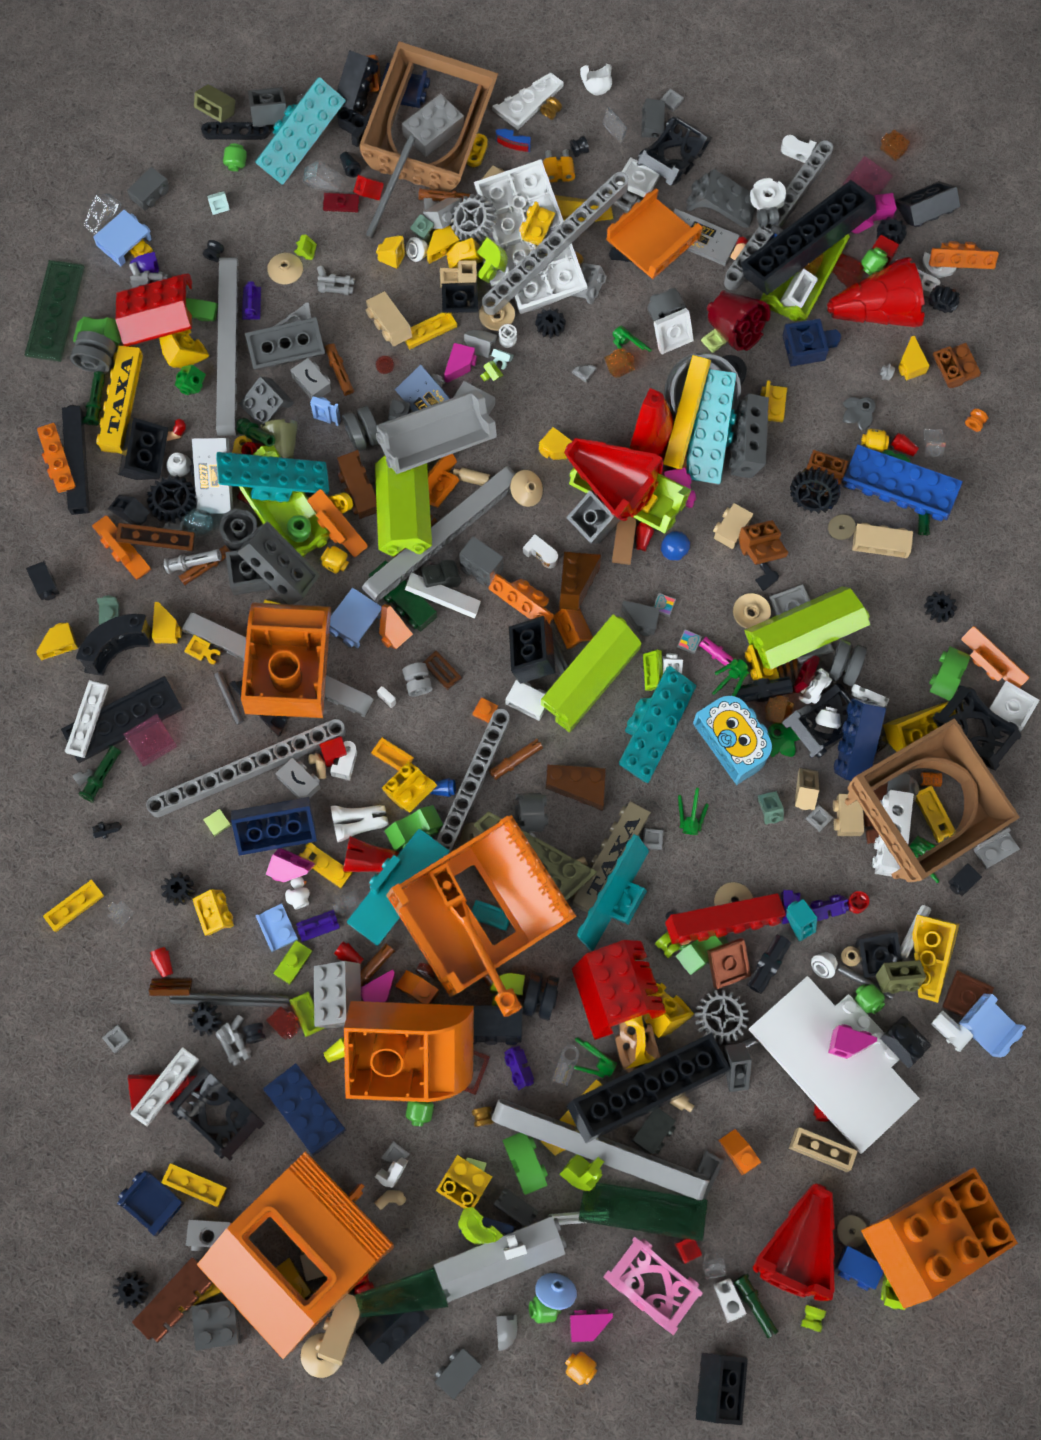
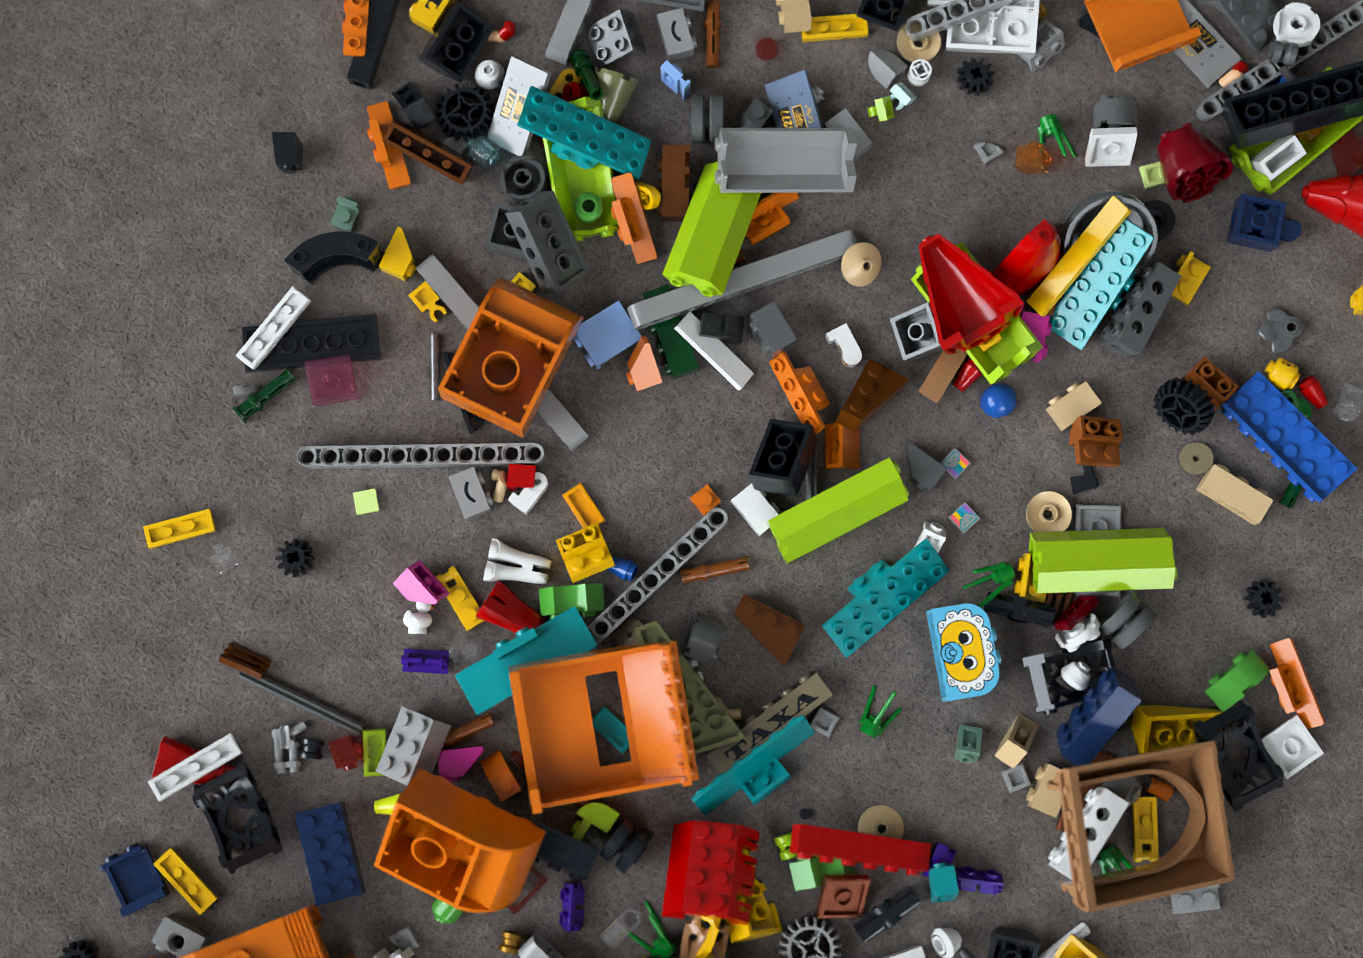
camera: 25 degrees right, 10 degrees up
(57, 641) = (277, 225): yellow slope -> none
(102, 830) = (243, 459): black piece -> none
(116, 1038) = (168, 691): light grey tile -> none
(162, 961) = (247, 628): red cone -> none
(184, 562) = (450, 193): light grey pin -> none
(196, 1016) = (264, 703): black gear -> none
(197, 570) = (470, 204): dark orange pin -> none
(213, 911) = (322, 598): yellow bracket -> none
(273, 826) = (422, 535): dark blue brick -> none
(276, 927) = (381, 644): light blue plate -> none
(293, 962) = (383, 689): lime tile -> none
(334, 559) = (613, 258): yellow head -> none
(346, 952) = (444, 707): red cone -> none
(386, 696) = (604, 440): white tile -> none
(417, 679) = (648, 427): light grey wheel -> none
(452, 682) = (671, 416): reddish brown tile -> none
(457, 905) = (576, 707): orange bar -> none
(460, 362) = (851, 82): dark pink slope -> none
(471, 476) = (807, 224): tan cylinder -> none
(554, 445) = (915, 226): yellow slope -> none
(652, 669) = (908, 533): lime plate -> none
(716, 651) = (988, 543): dark pink pin -> none
(778, 709) = (1026, 640): clear orange brick -> none
(784, 742) = (1013, 677): green plate -> none
(846, 960) = (972, 943): tan plate -> none
(861, 901) = (1017, 892): red wheel -> none
(863, 694) = (1132, 664): white plate -> none
(887, 372) = (1335, 296): light grey plate -> none
(964, 880) = (1142, 916): black brick -> none

